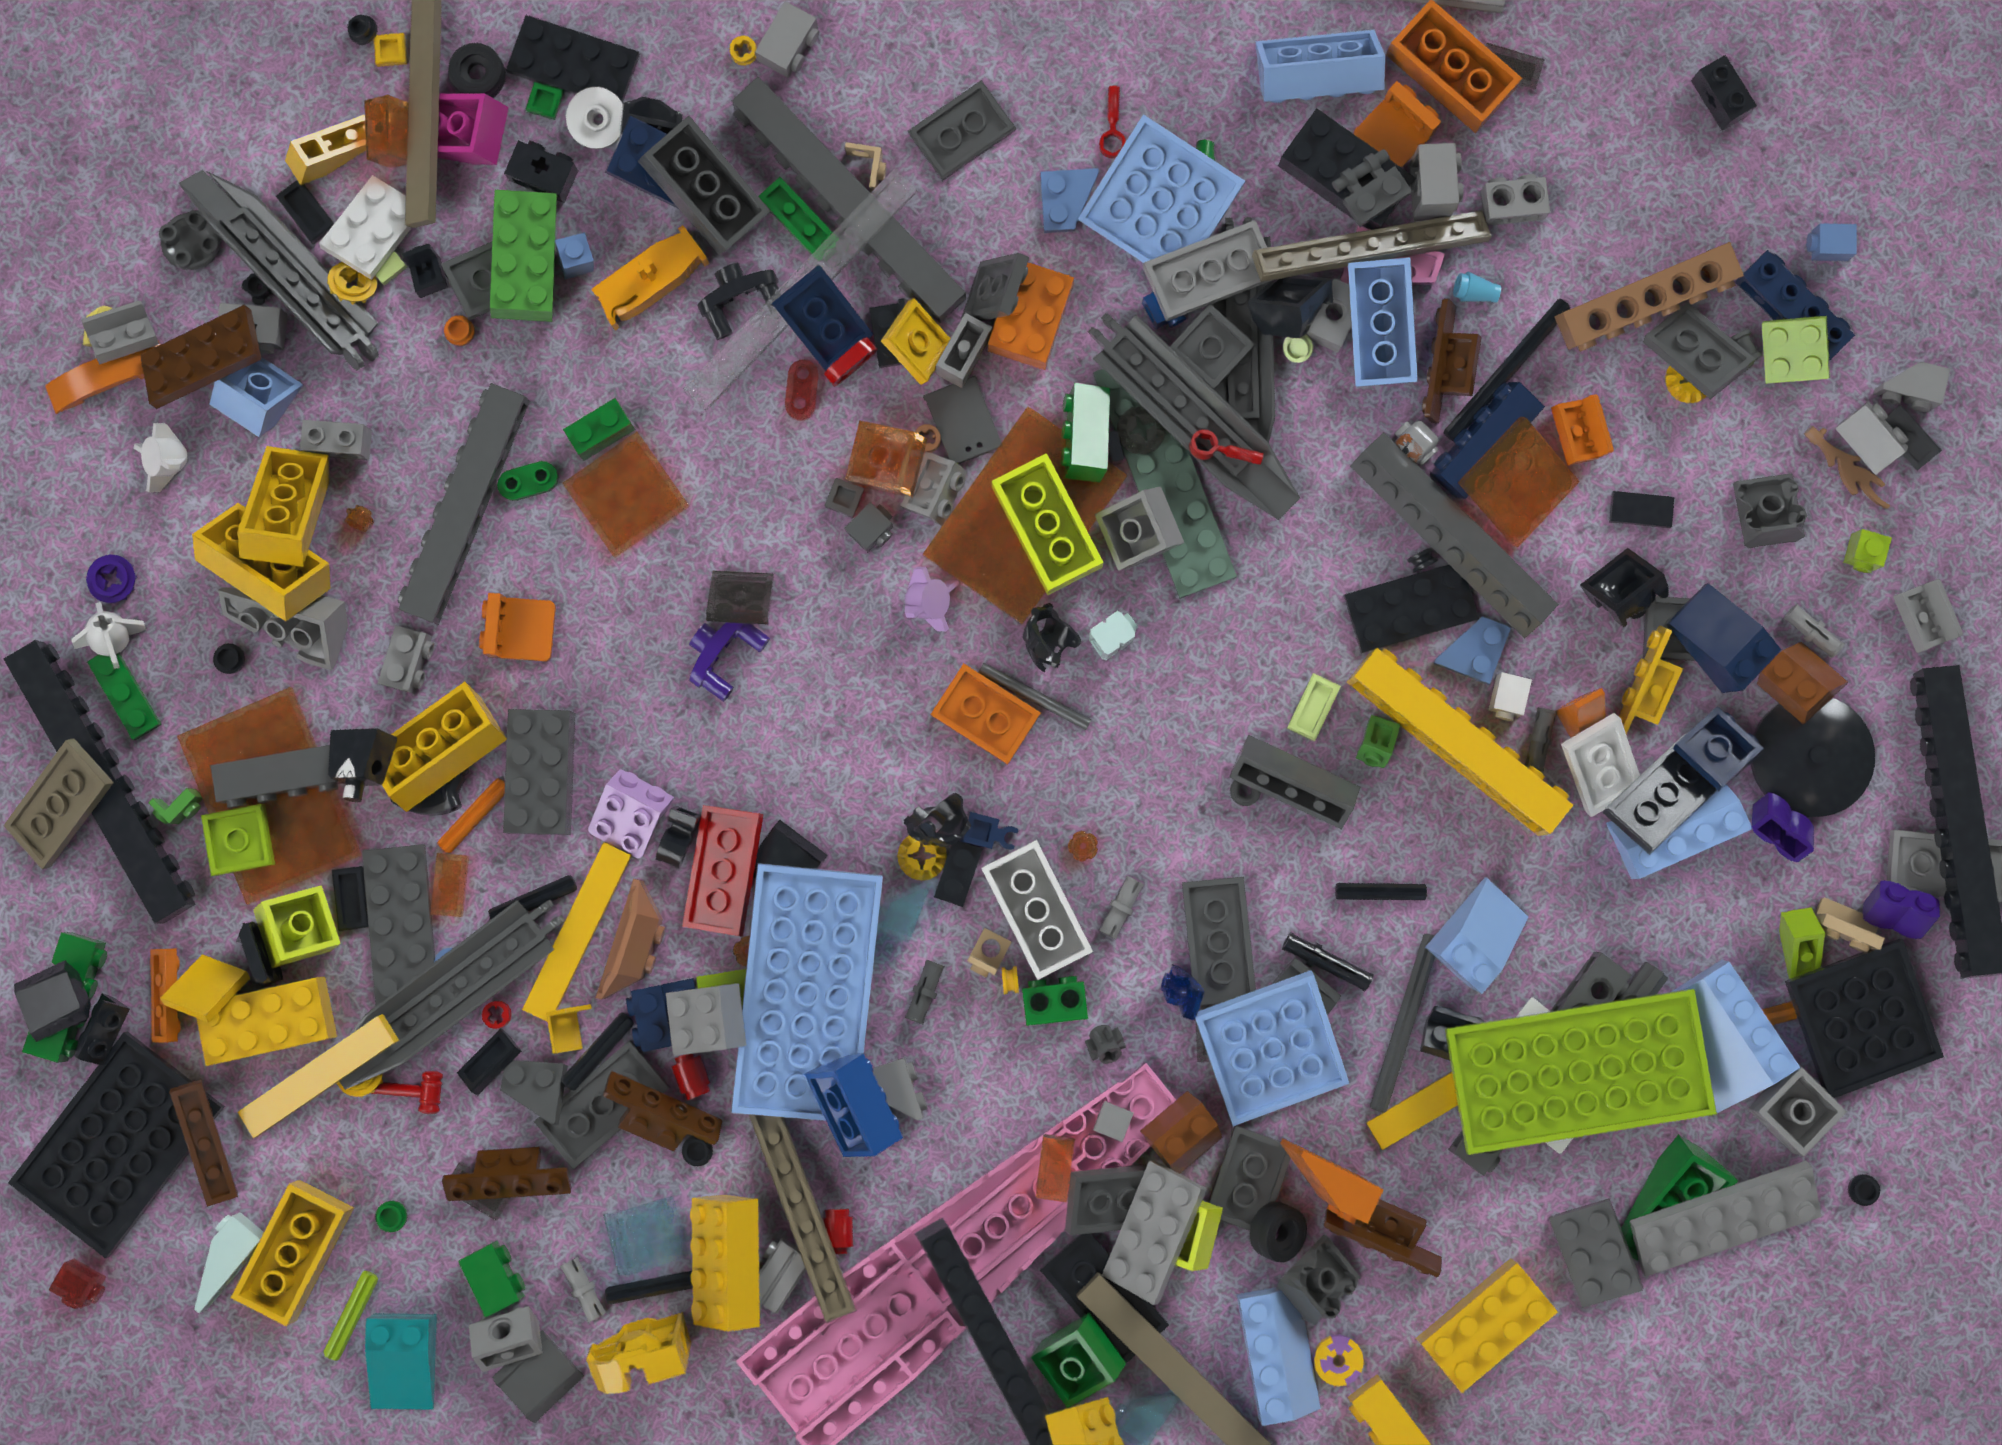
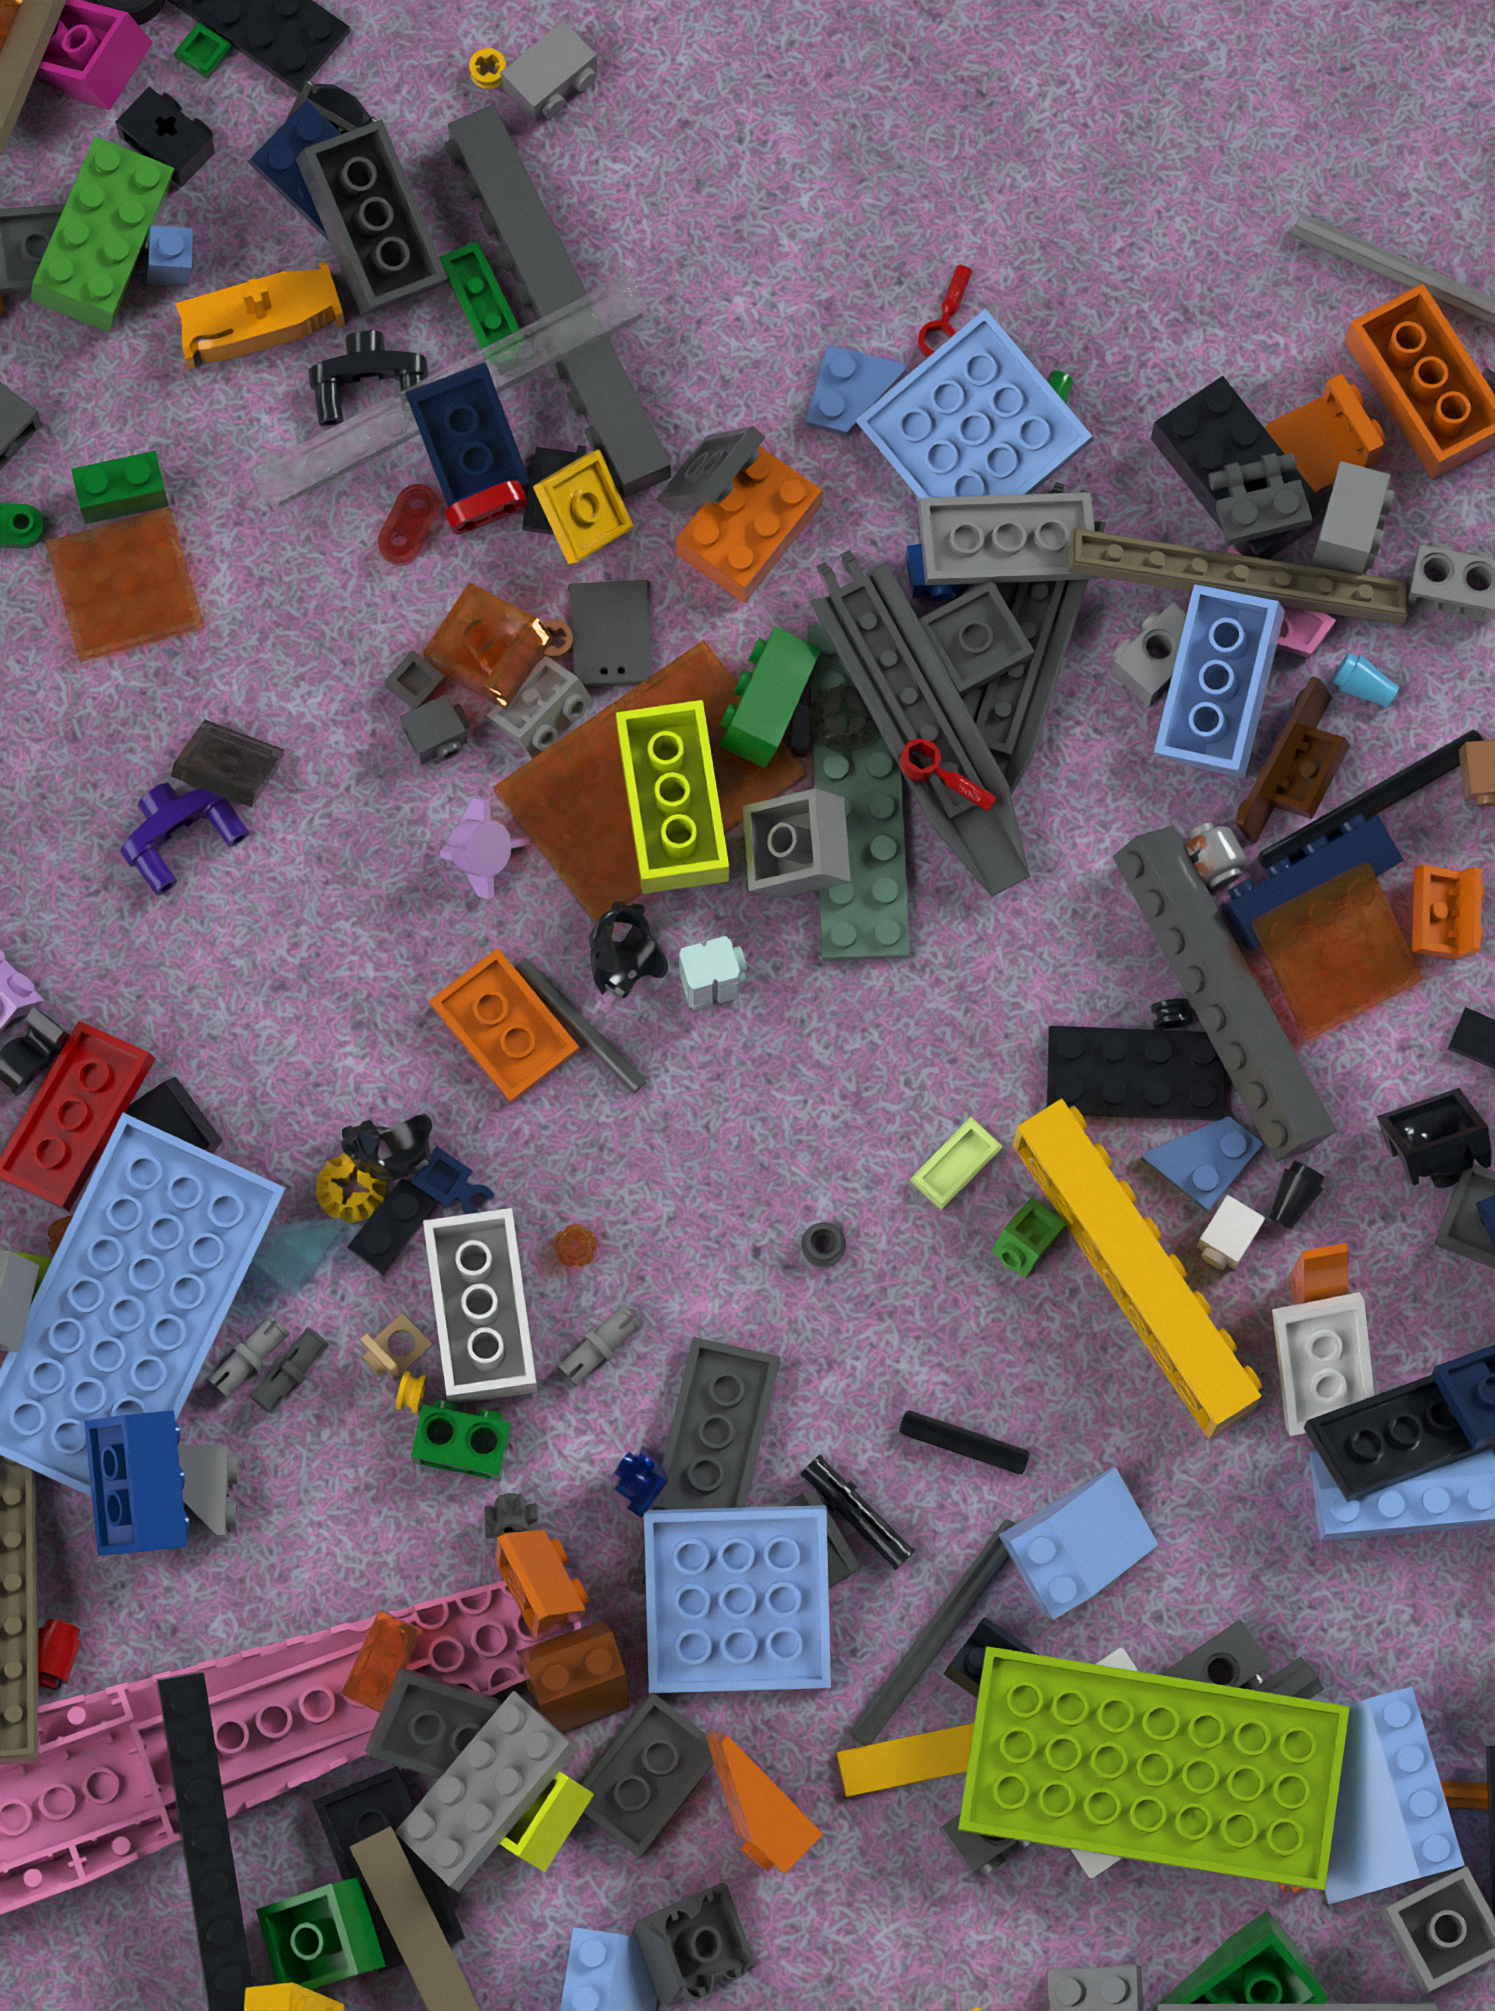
camera: 15 degrees right, 10 degrees down
(581, 116) = (249, 77): white dish -> none
(878, 168) = (613, 251): tan bracket -> none
(894, 991) = (248, 1356): none -> light grey pin
(961, 130) = (741, 260): dark grey tile -> none
(963, 350) = (641, 539): light grey brick -> none
(1113, 1121) = (484, 1626): light grey tile -> none
(1142, 1084) = (539, 1581): none -> orange slope
(1264, 1230) = (679, 1869): black tyre -> none
(1290, 304) = (1099, 617): black brick -> none
(1295, 782) = (893, 1250): dark grey brick -> none
(1298, 349) = (1096, 680): yellowish green plate -> none
(1320, 66) = (1249, 327): light blue slope -> none
(1391, 1233) = (815, 1909): reddish brown bracket -> none
(1540, 738) = (1255, 1305): dark grey pin -> none
(1543, 654) = (1295, 1194): none -> black cone
(1653, 683) = (1431, 1284): yellow bracket -> none

